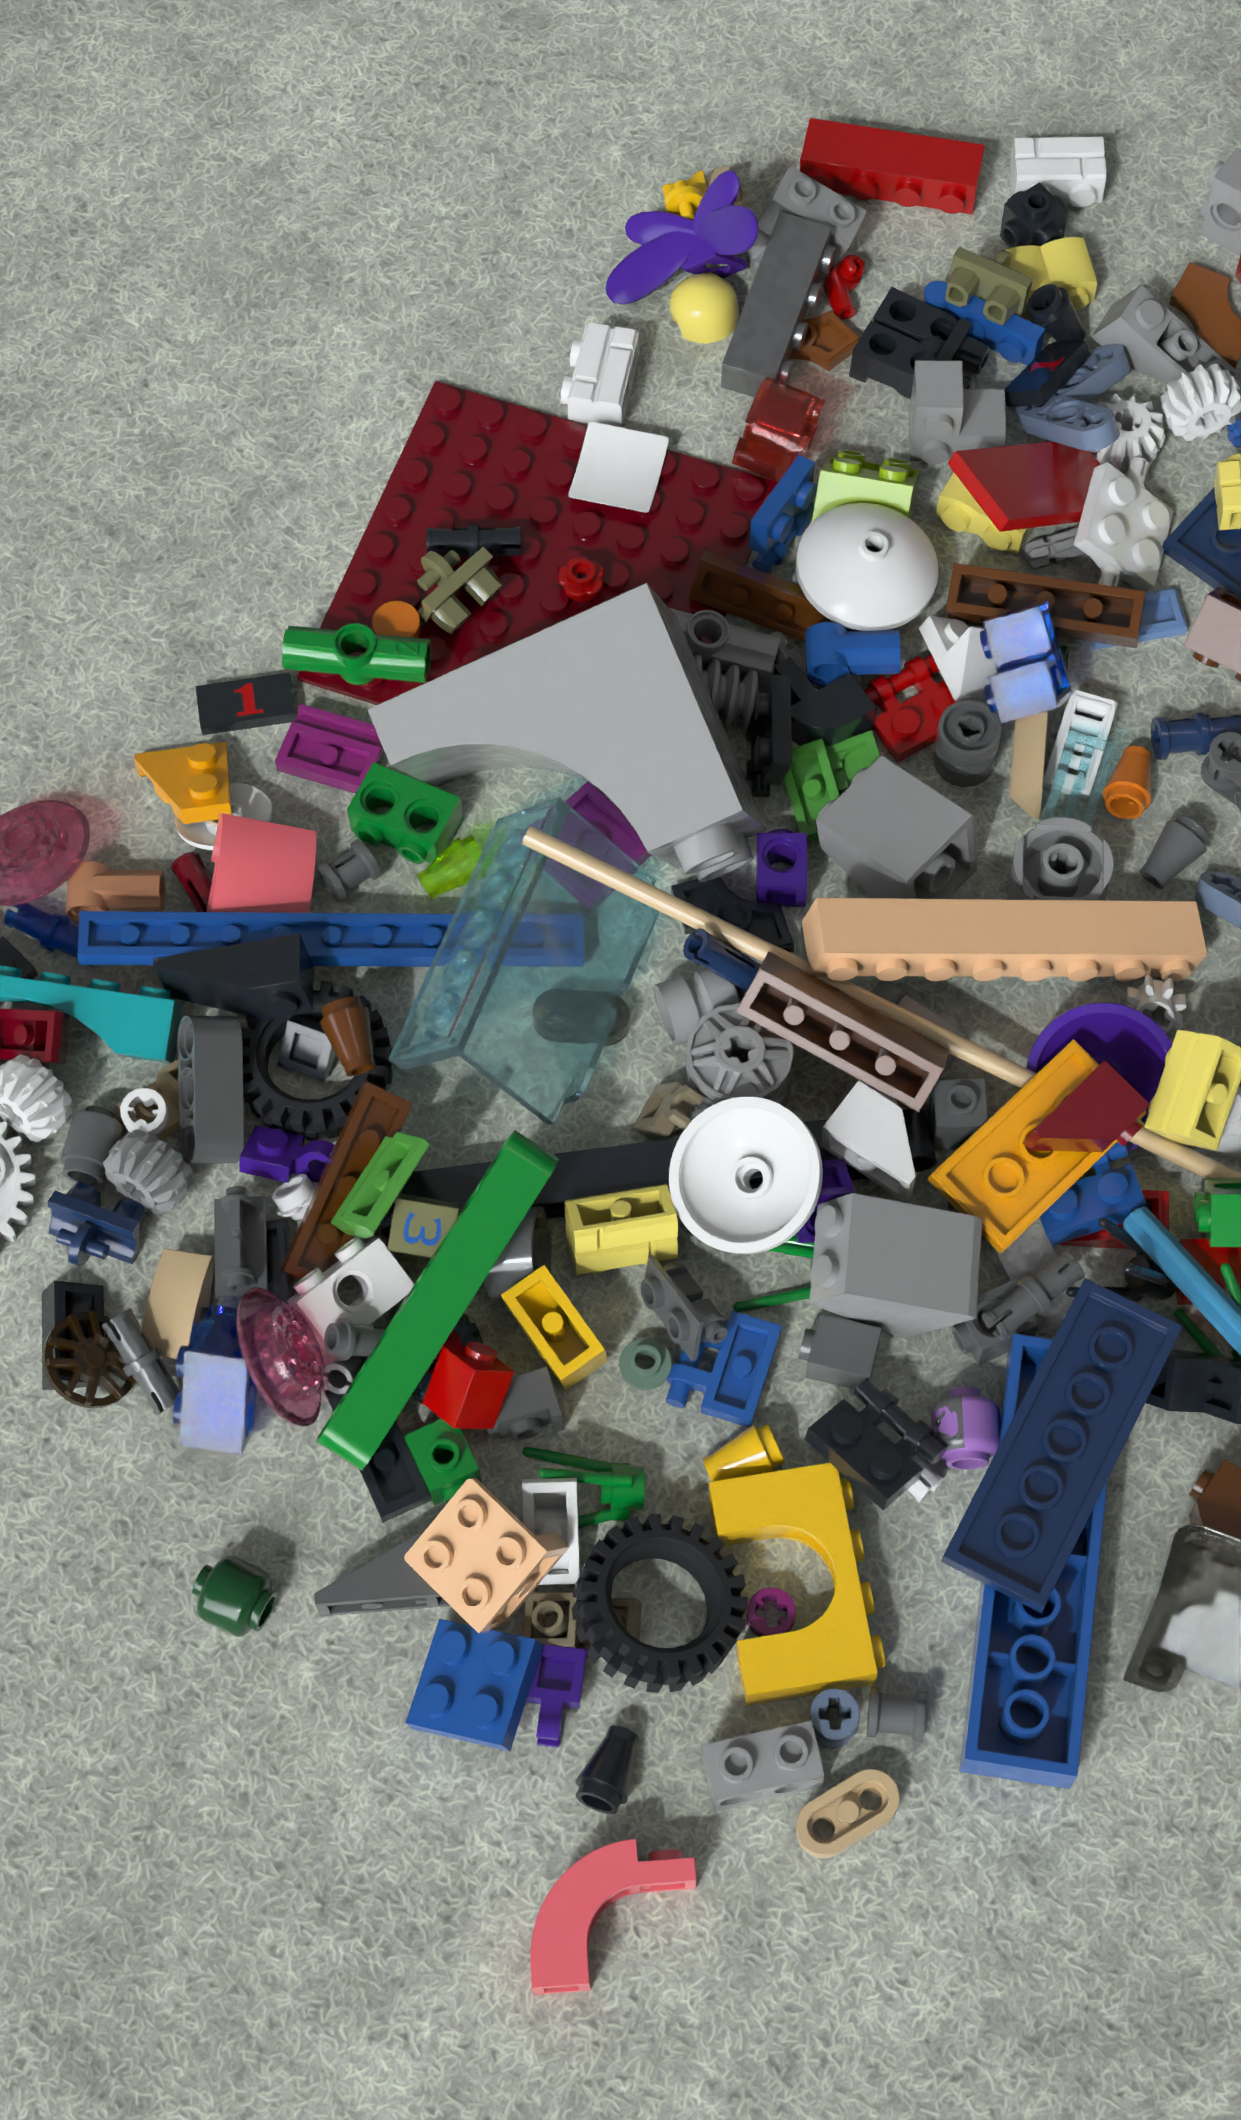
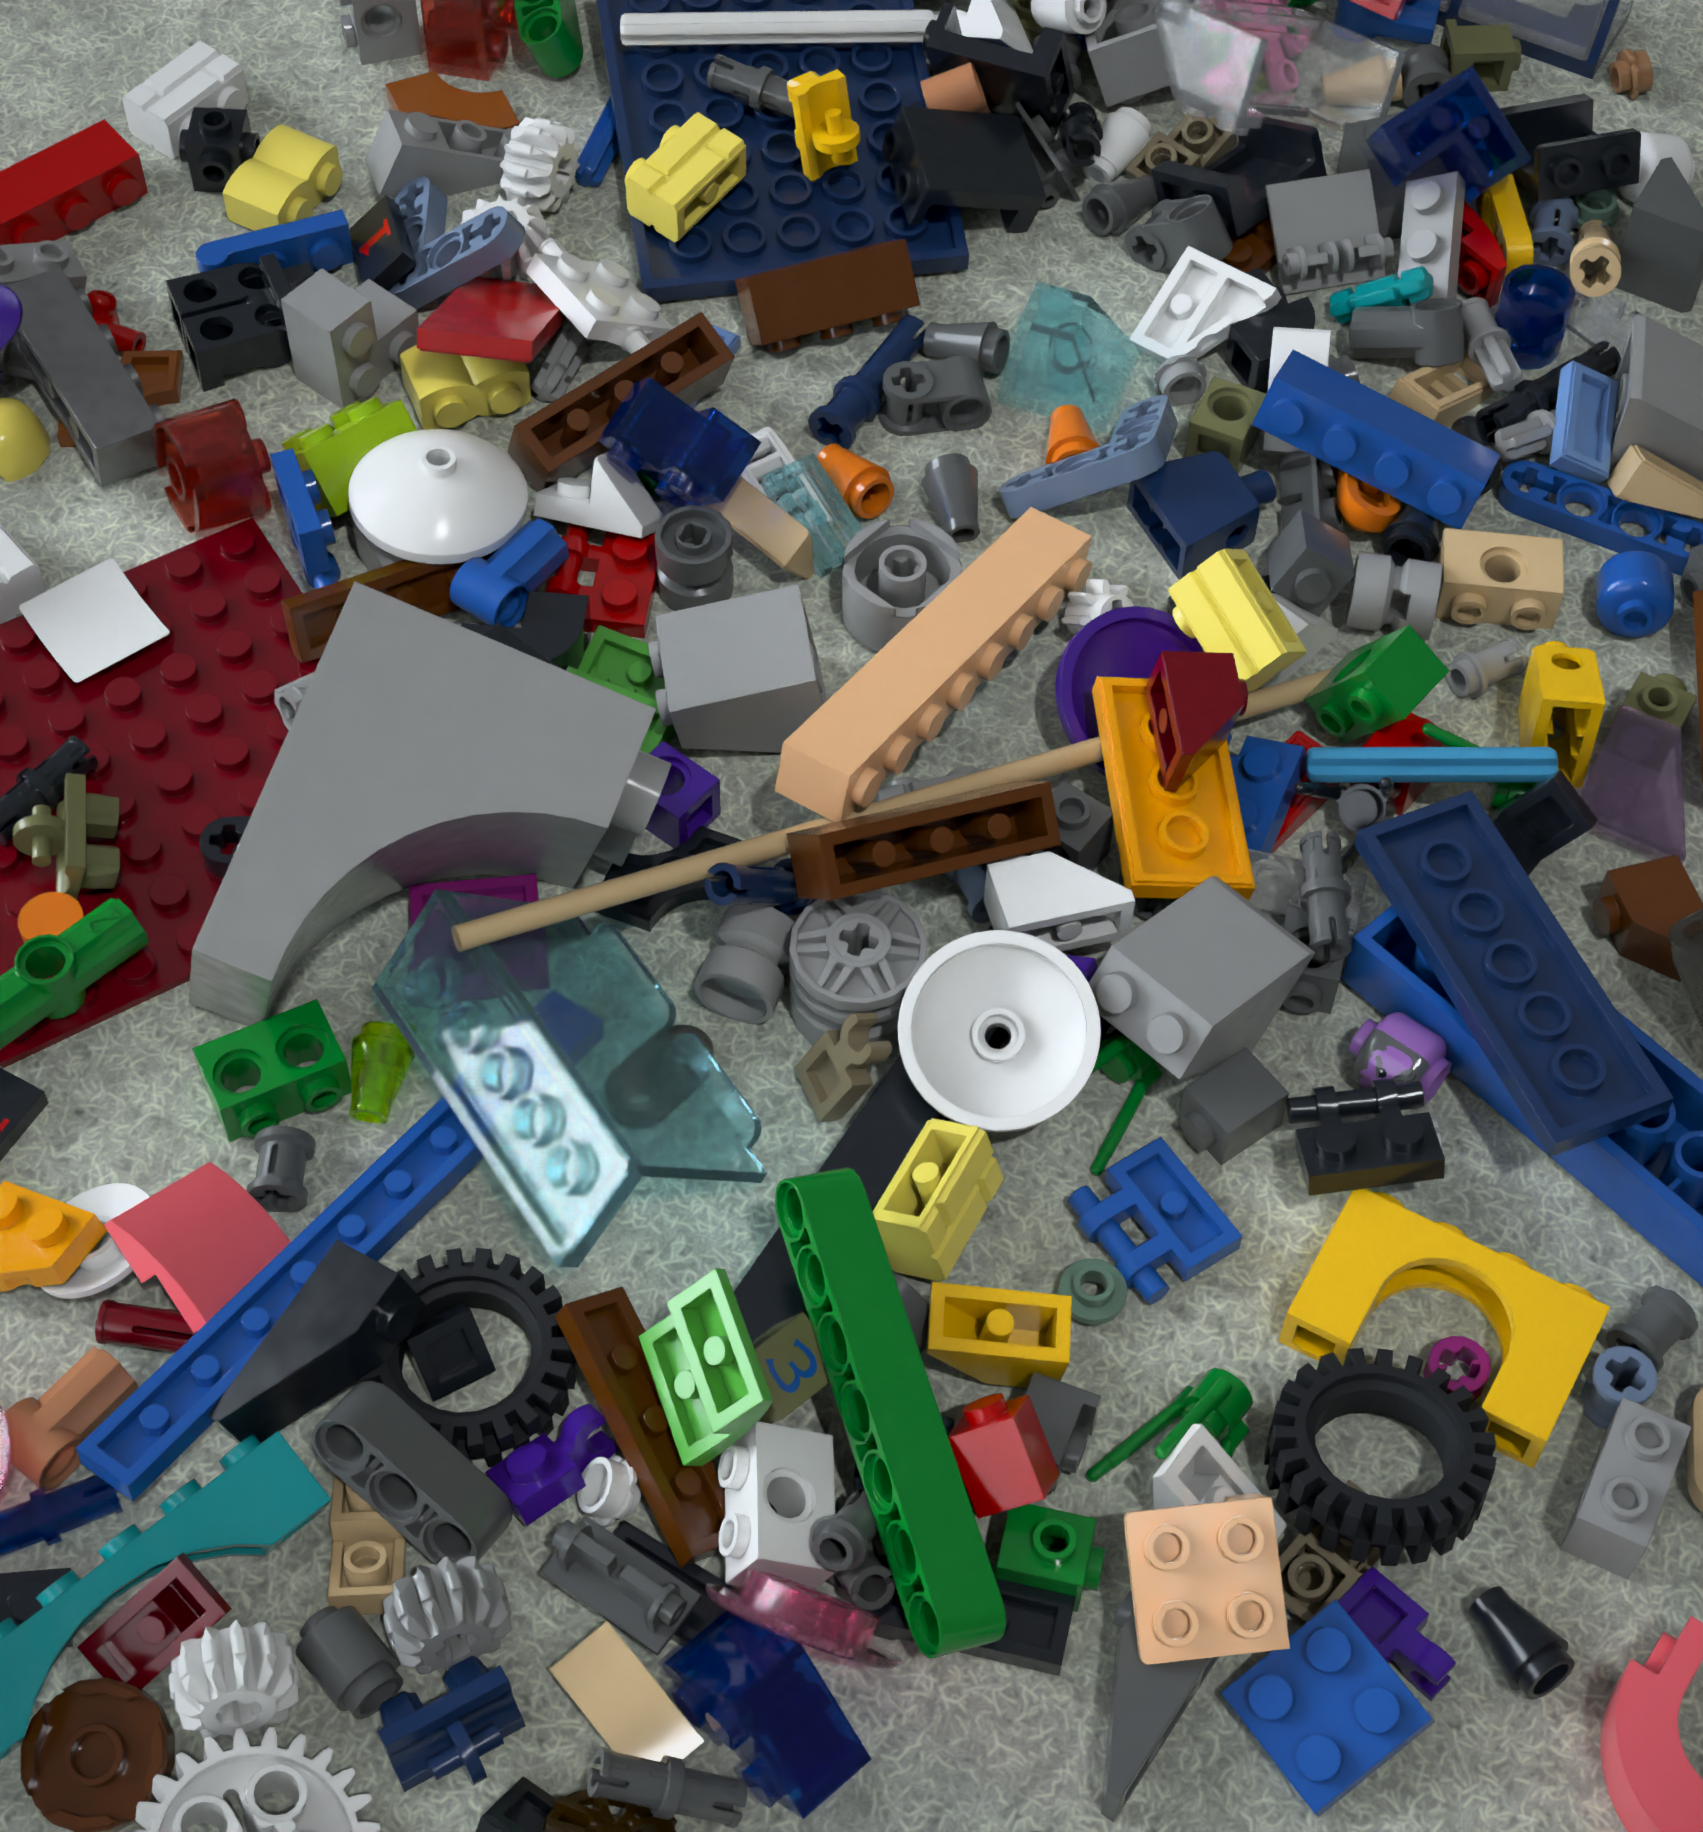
camera: 55 degrees left, 10 degrees down
(147, 1097) = (356, 1553): white bush -> none
(329, 749) = (125, 1086): magenta plate -> none
(350, 1034) = (490, 1285): reddish brown cone -> none
(581, 589) = (183, 744): red plate -> none
(669, 1293) = (1063, 1213): dark grey hinge -> none
(747, 1454) = (1272, 1267): yellow cone -> none
(990, 280) = (253, 205): olive hips -> none
(1055, 312) = (329, 189): black cone -> none

